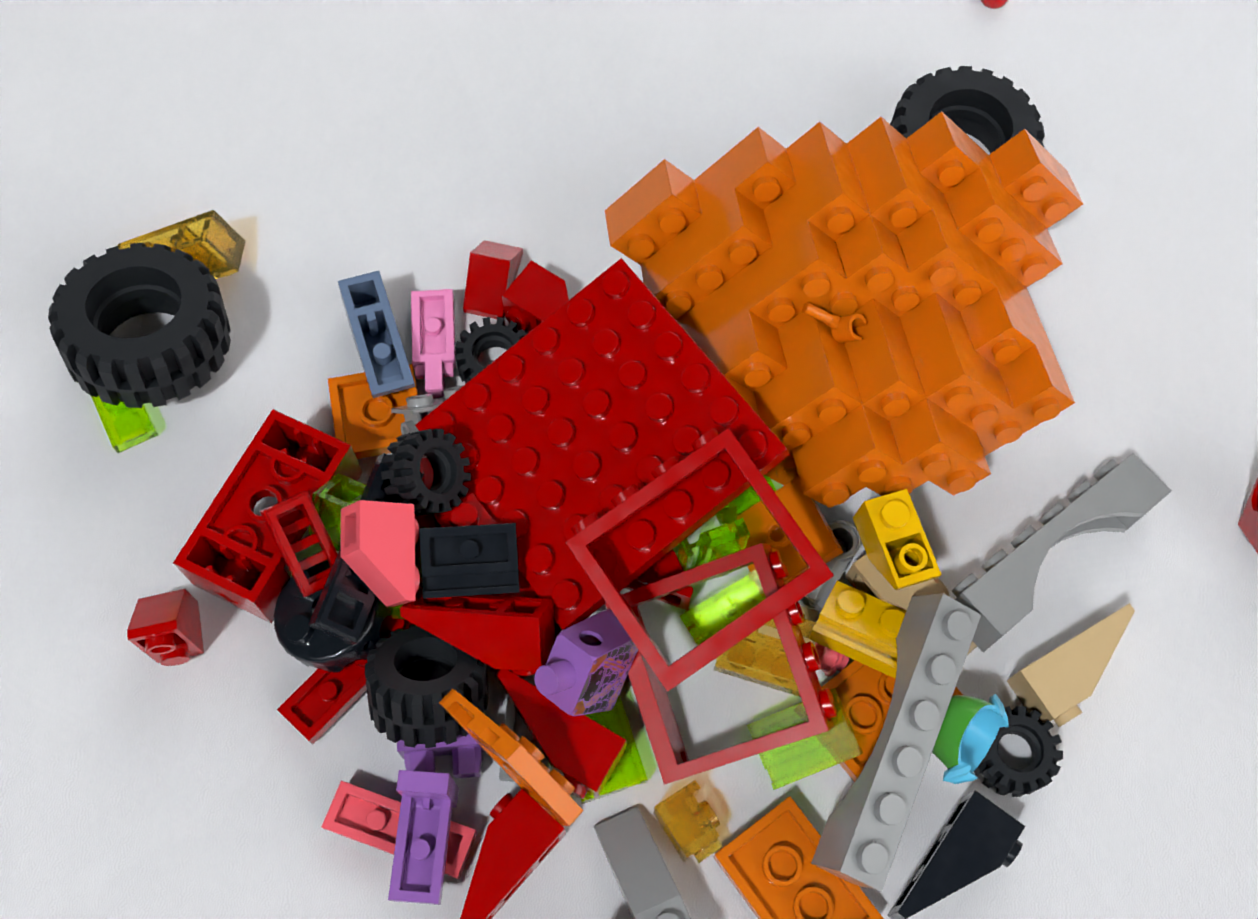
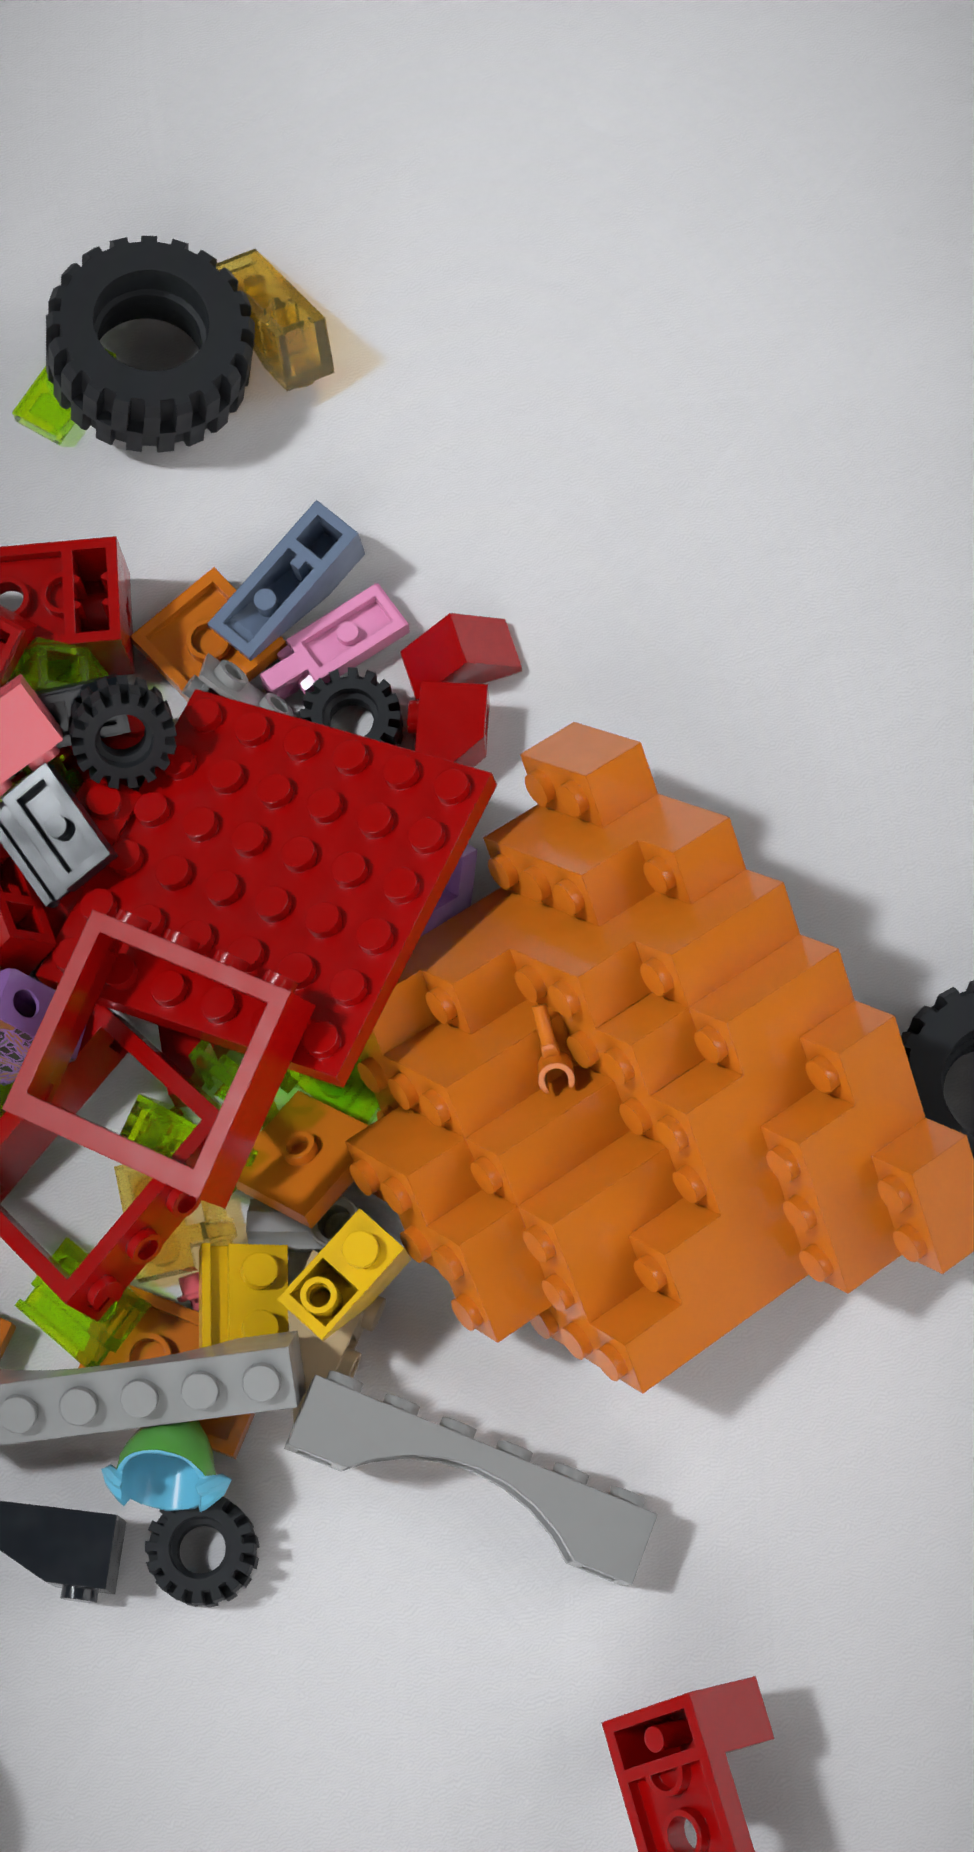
camera: 70 degrees right, 5 degrees up
(1070, 671) = (331, 1568): tan slope -> none

